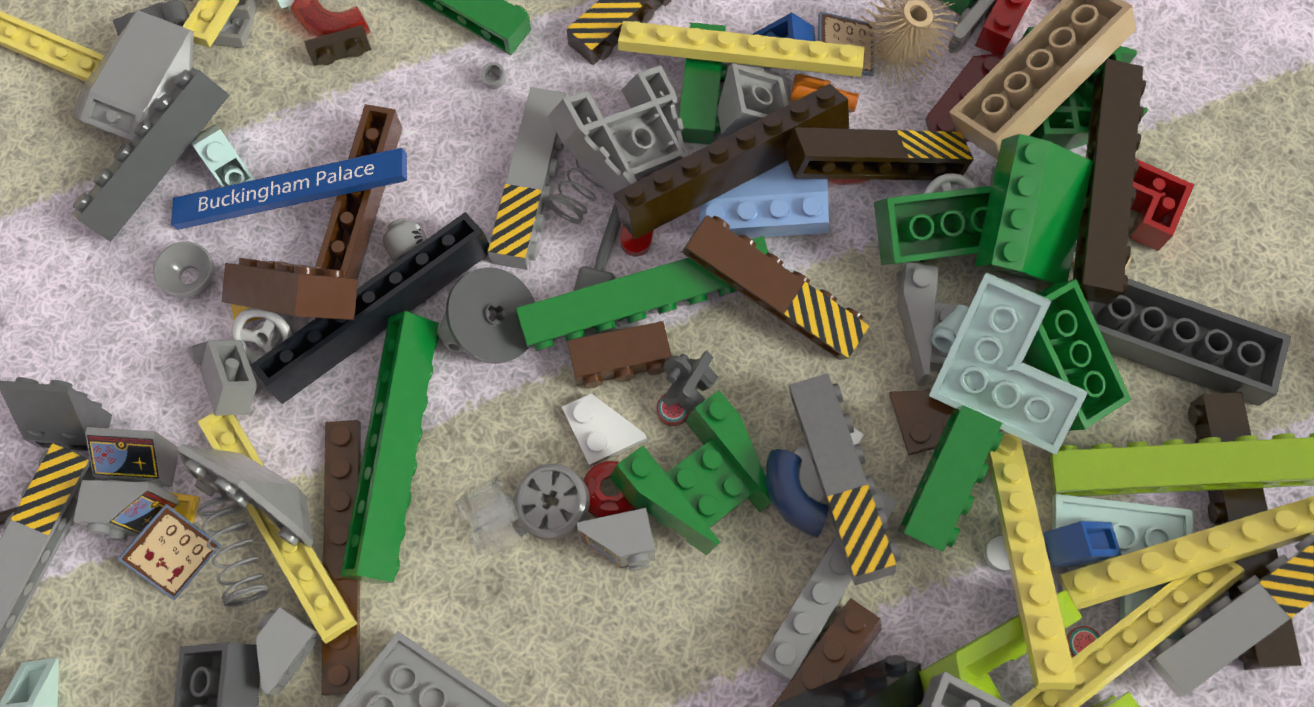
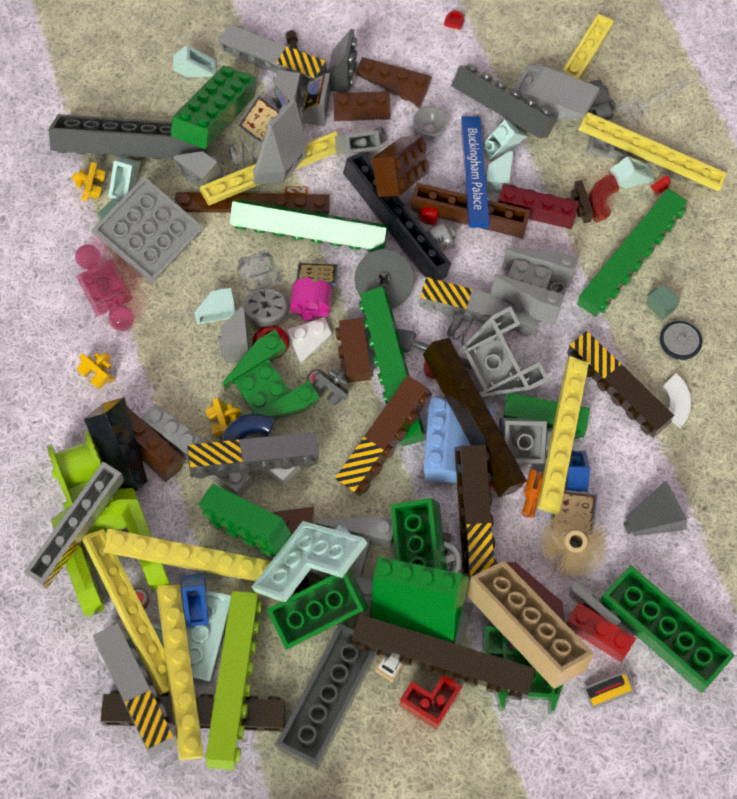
camera: 95 degrees right, 5 degrees down
(91, 328) = (403, 82): none -> reddish brown wing
(146, 381) = (361, 106): none -> reddish brown brick
(151, 634) = (213, 107): none -> green brick
(284, 155) = (499, 172): none -> light aqua slope
(315, 479) = (296, 190): none -> clear orange sticker
(348, 93) = (542, 207): none -> dark red brick
(366, 260) = (428, 215): none -> red tile
(485, 425) = (324, 272): none -> tan piece
(492, 105) = (530, 278): none -> light grey wedge
(537, 425) = (310, 298): none -> dark pink brick
(554, 583) = (216, 306): none -> light aqua slope
(775, 542) = (225, 416): none -> yellow hips

